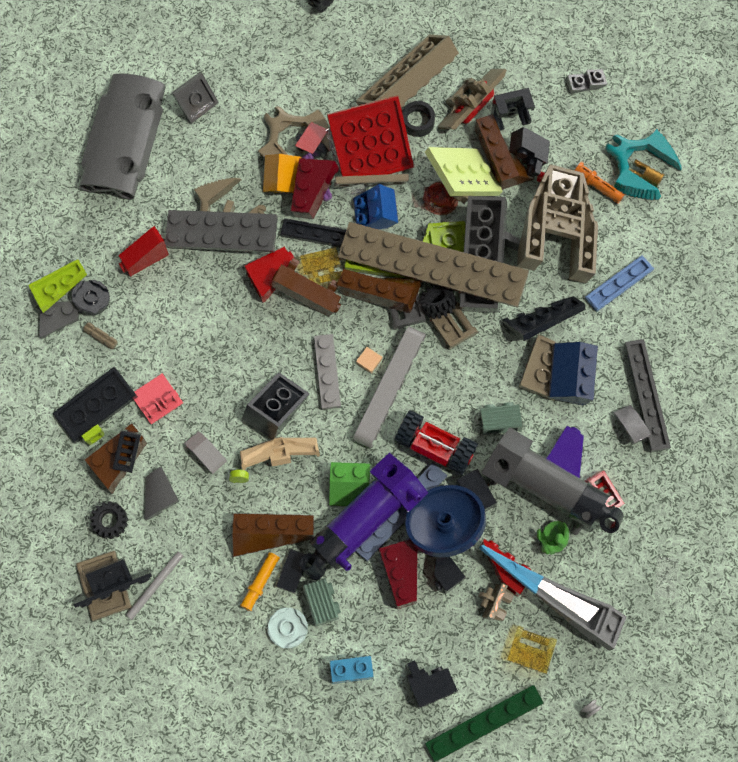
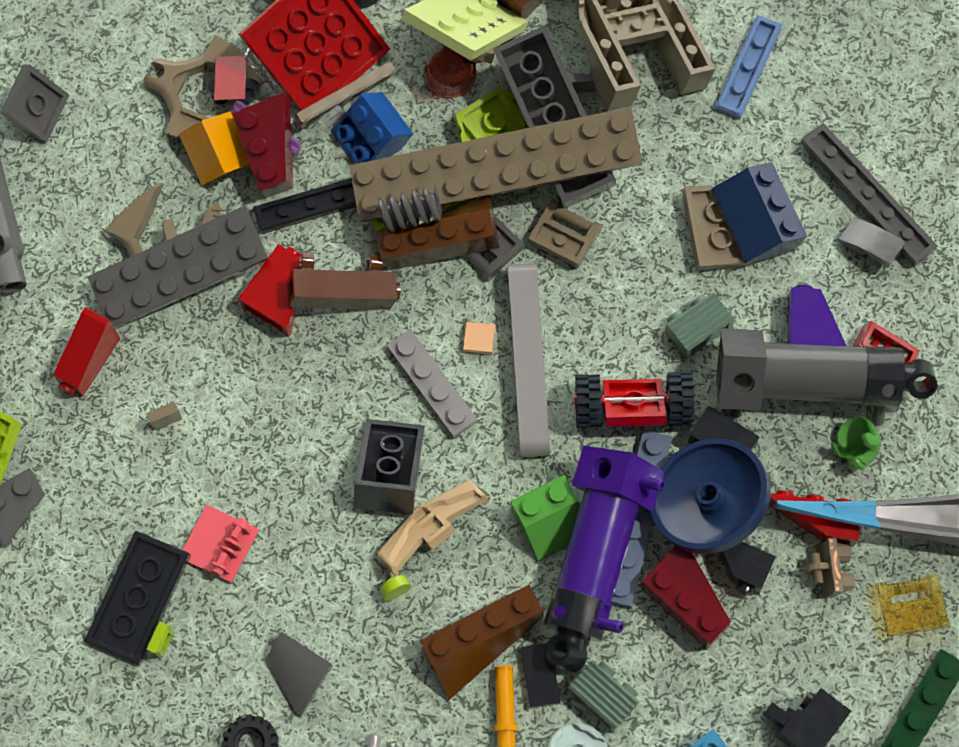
camera: 25 degrees left, 0 degrees up
(90, 297) = (45, 453): black tile -> none
(100, 335) = (89, 499): dark tan axle -> none
(103, 459) = (210, 652): reddish brown wedge -> none
(121, 467) = (214, 637): black slope -> none
(167, 311) = (164, 416): none -> dark tan tile
(205, 452) = (330, 578): light grey slope -> none
(321, 261) = (338, 239): clear yellow plate -> none
(367, 265) = (410, 209): none -> dark grey piece
(431, 304) = (533, 222): black tyre -> none
(543, 318) = (677, 163): black wing -> none

